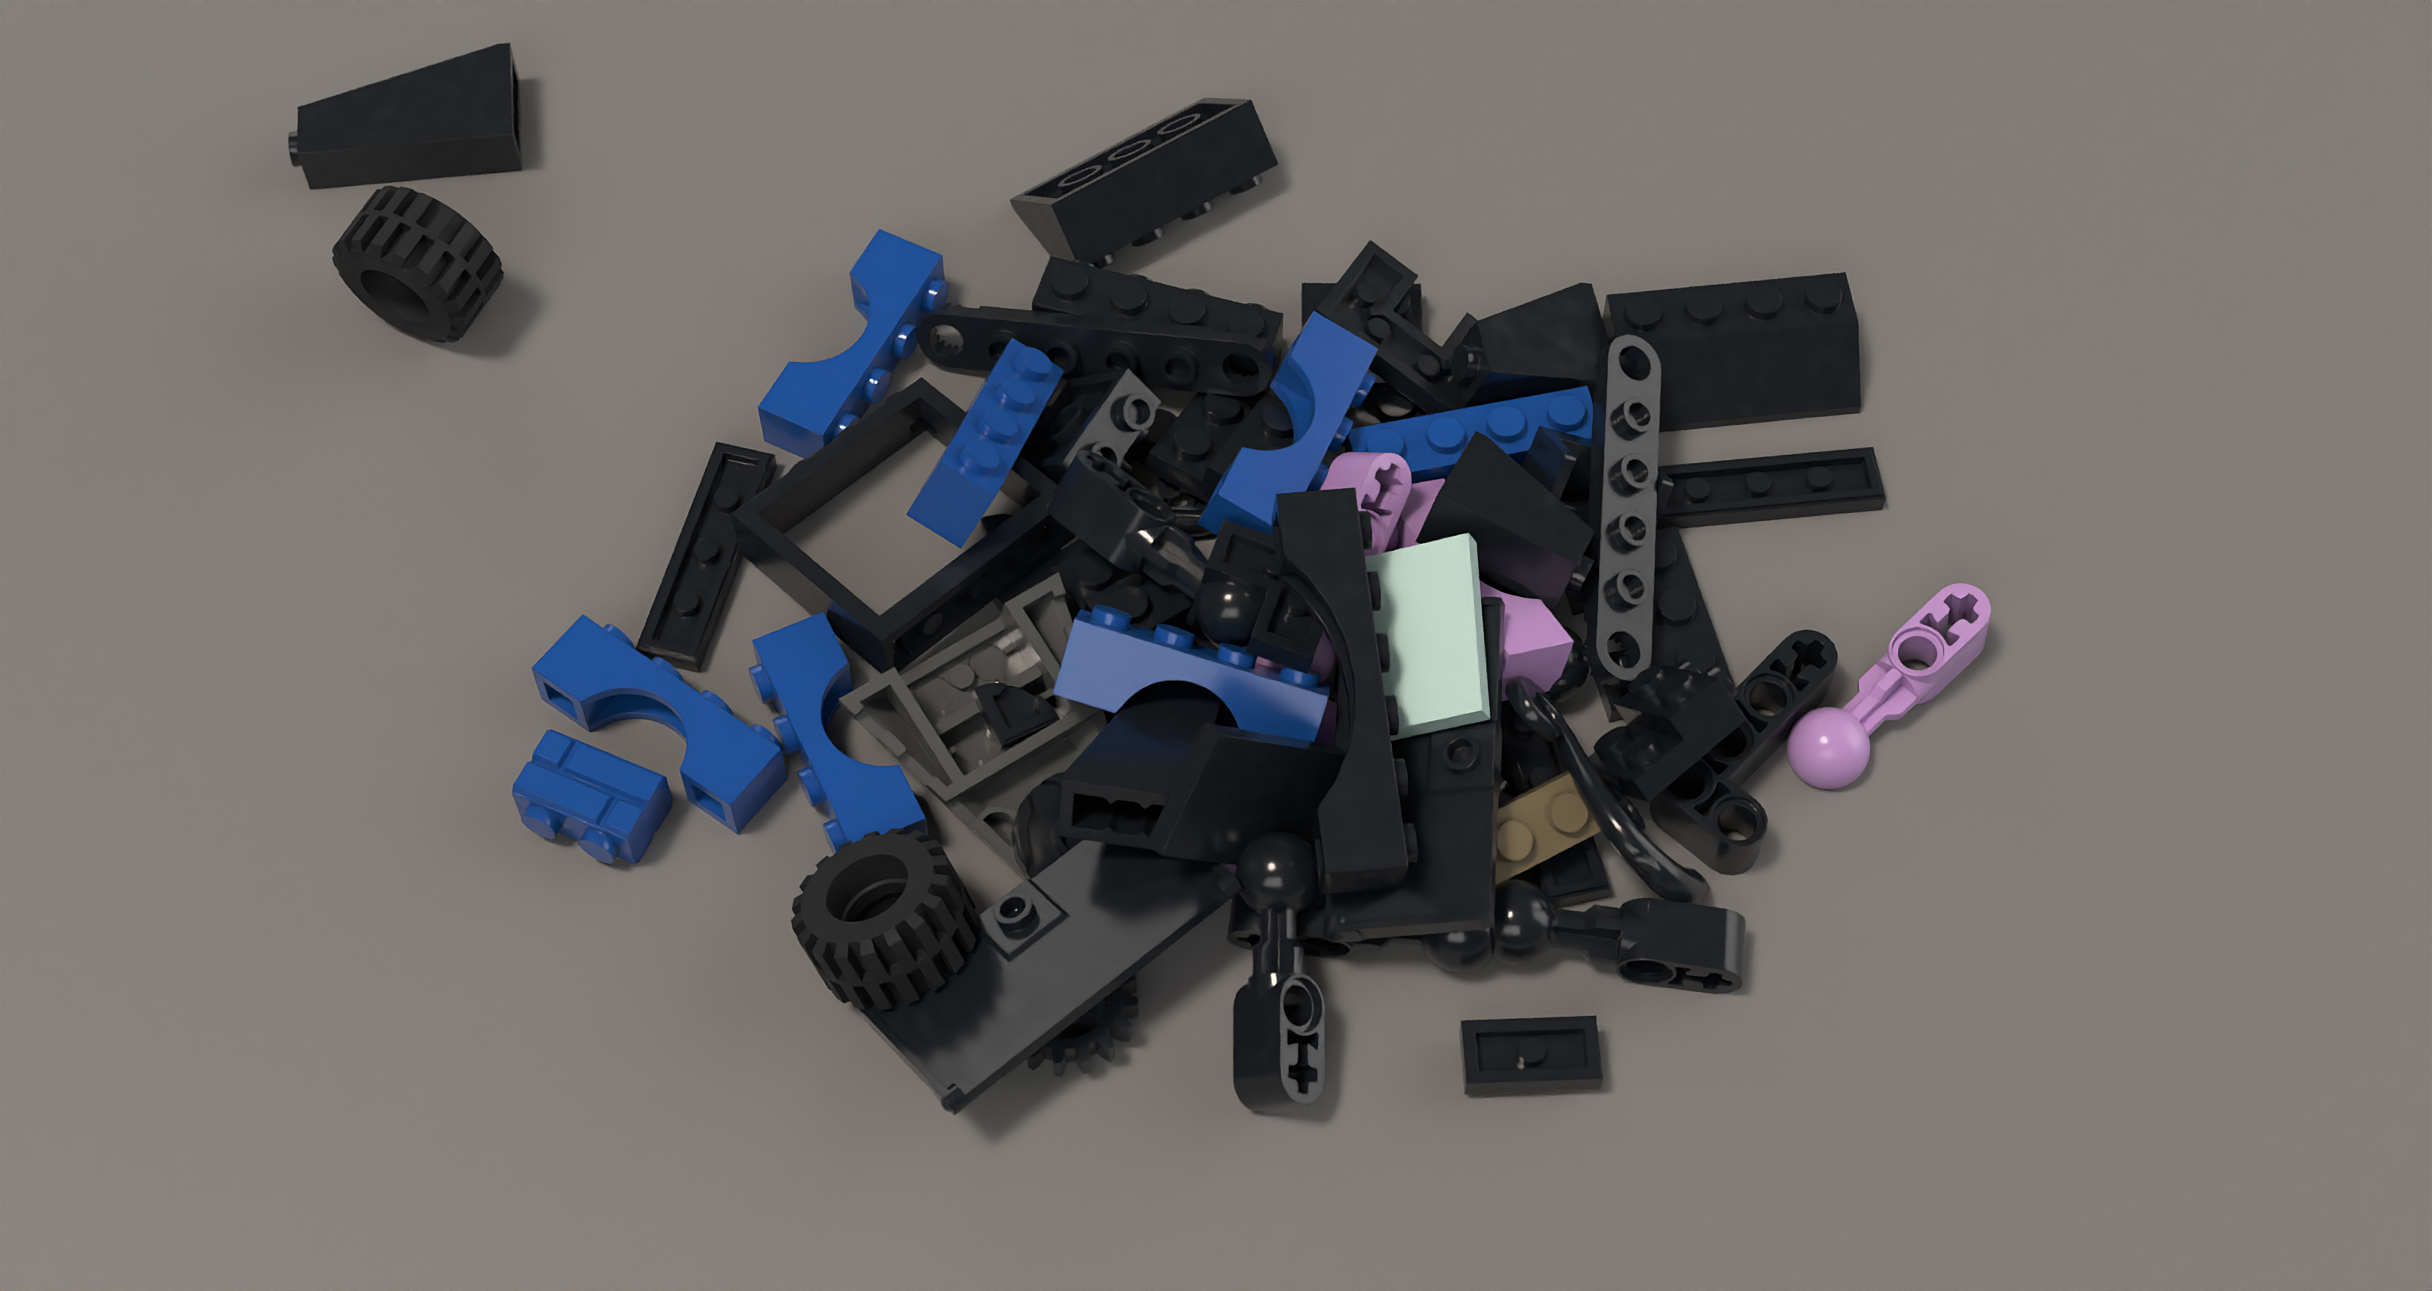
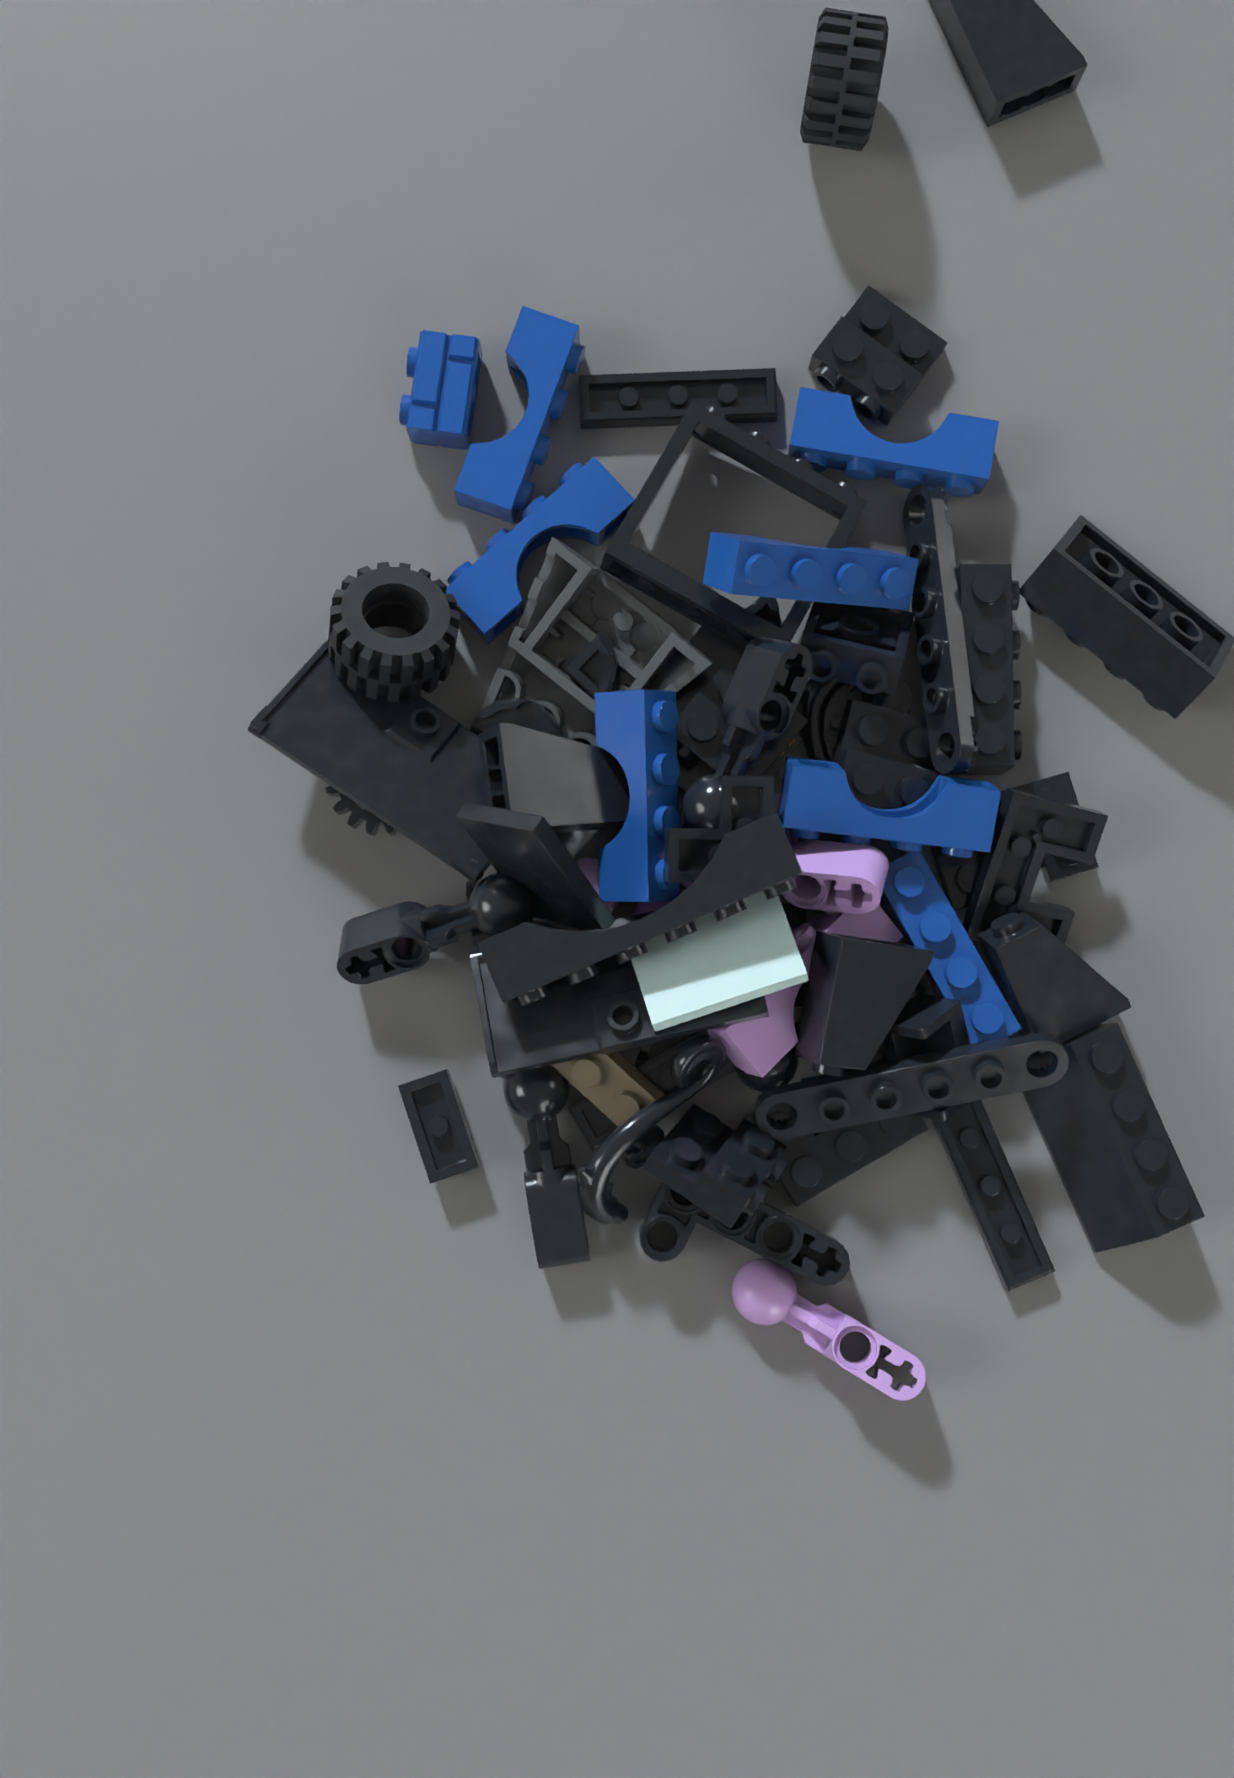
camera: 75 degrees right, 25 degrees up
(743, 339) = (876, 356): none -> black plate

